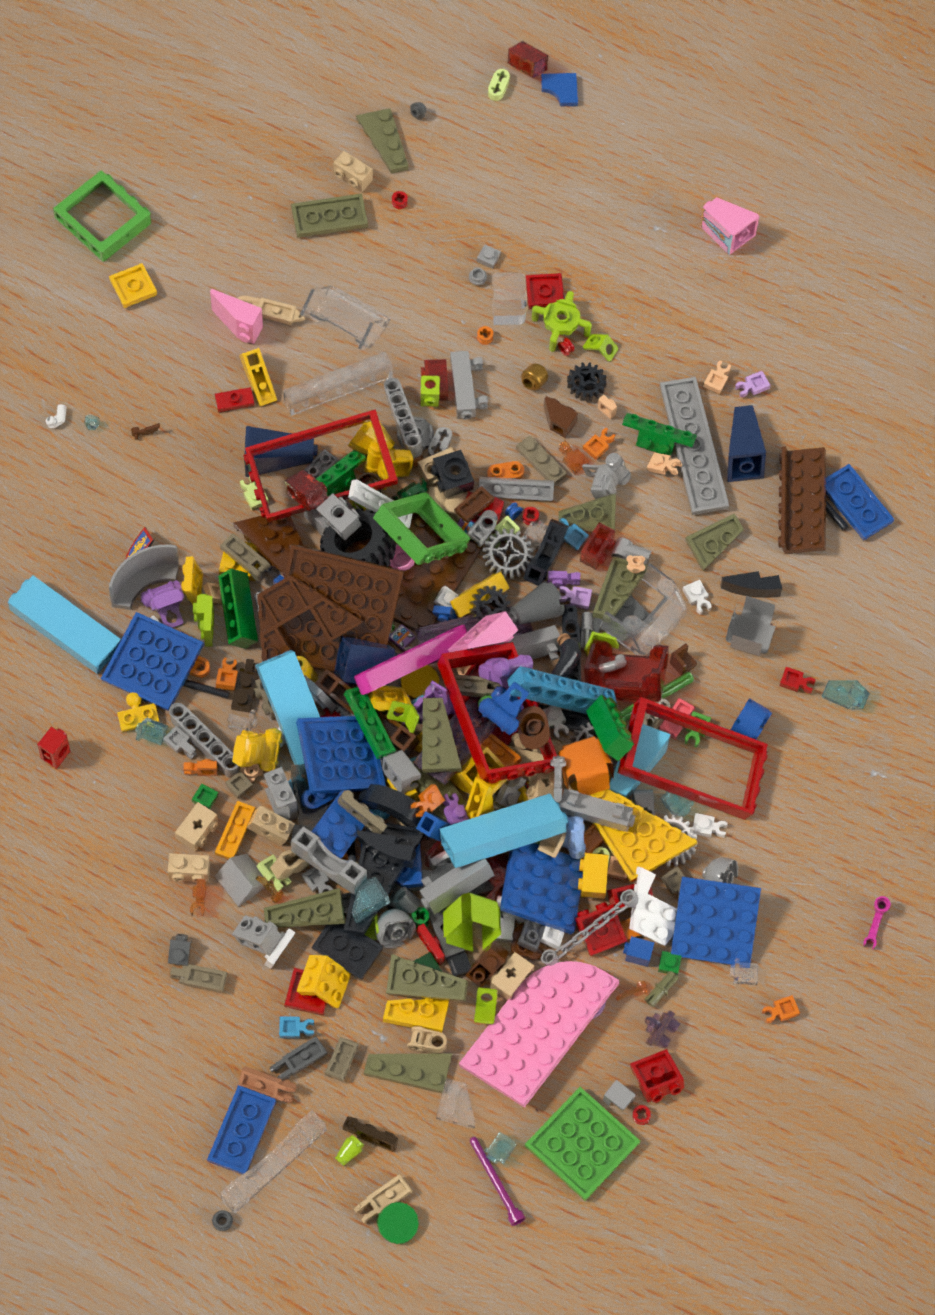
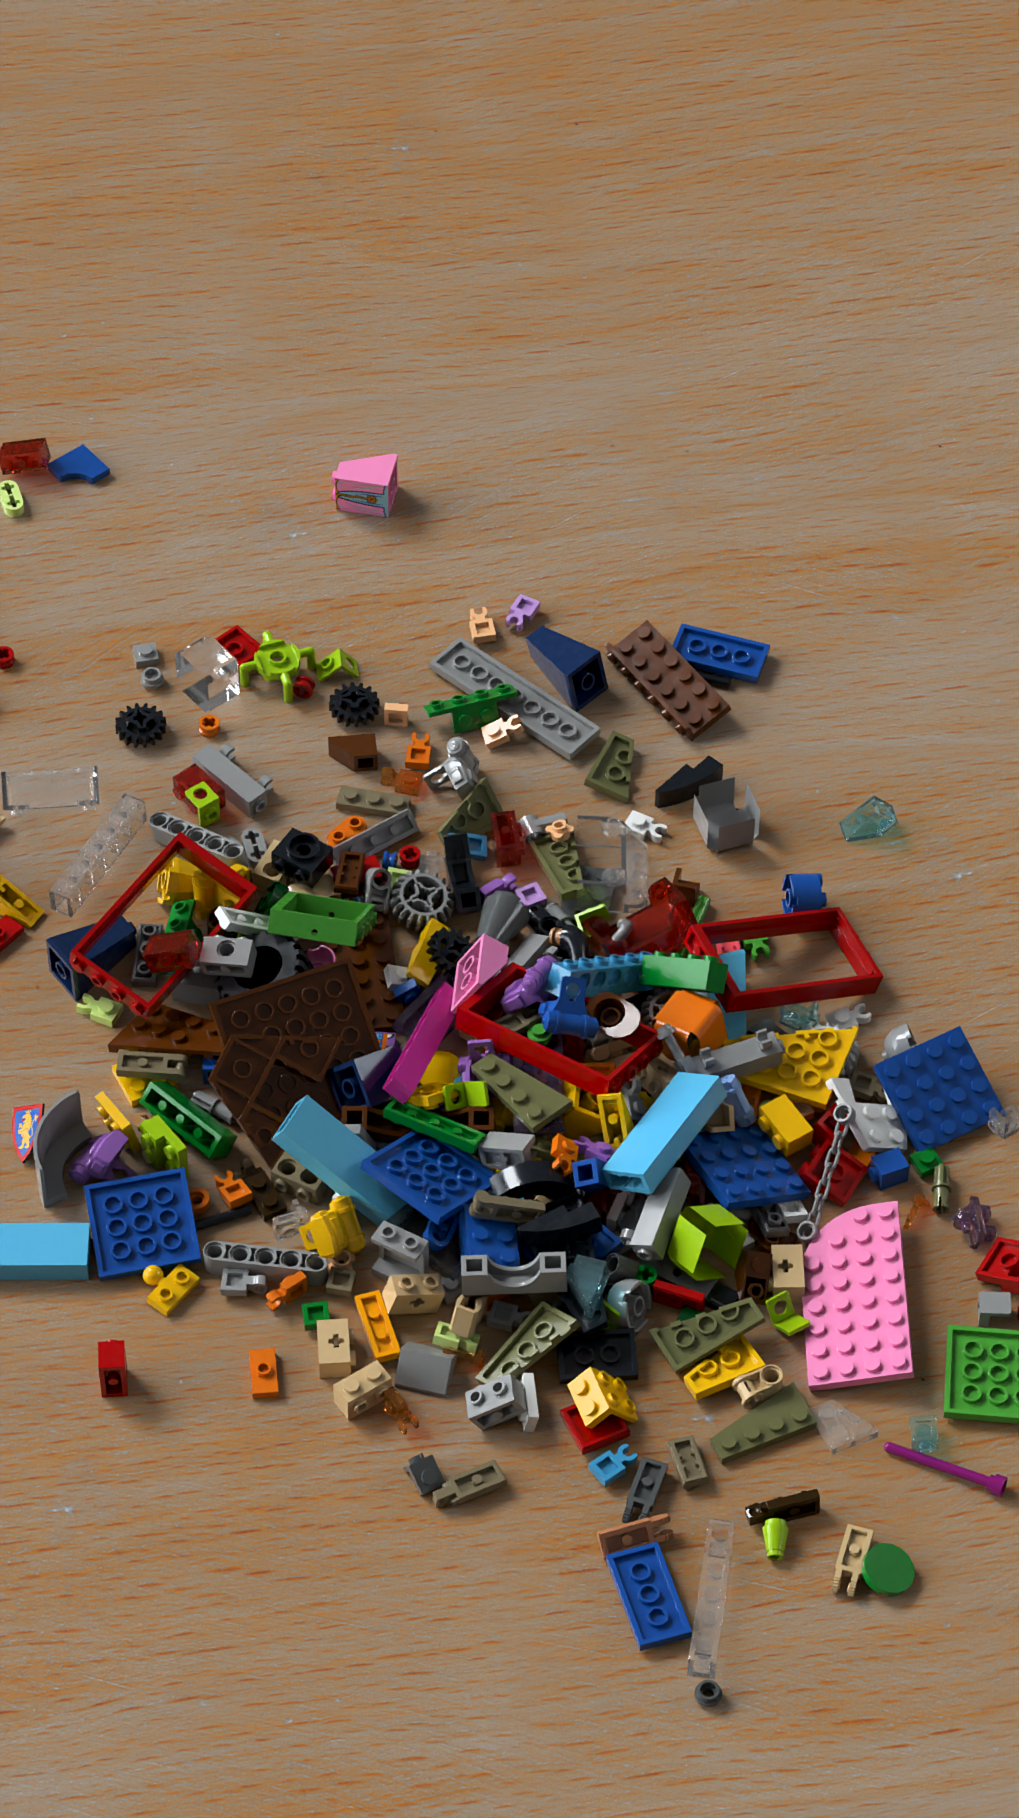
camera: 35 degrees left, 15 degrees down
(144, 812) = (263, 1373): none -> orange plate
(151, 731) = (201, 1290): clear light blue bracket -> none
(441, 307) = (140, 725): none -> black gear
(534, 376) = (297, 730): pearl gold head -> none
(793, 679) = (808, 841): red plate -> none

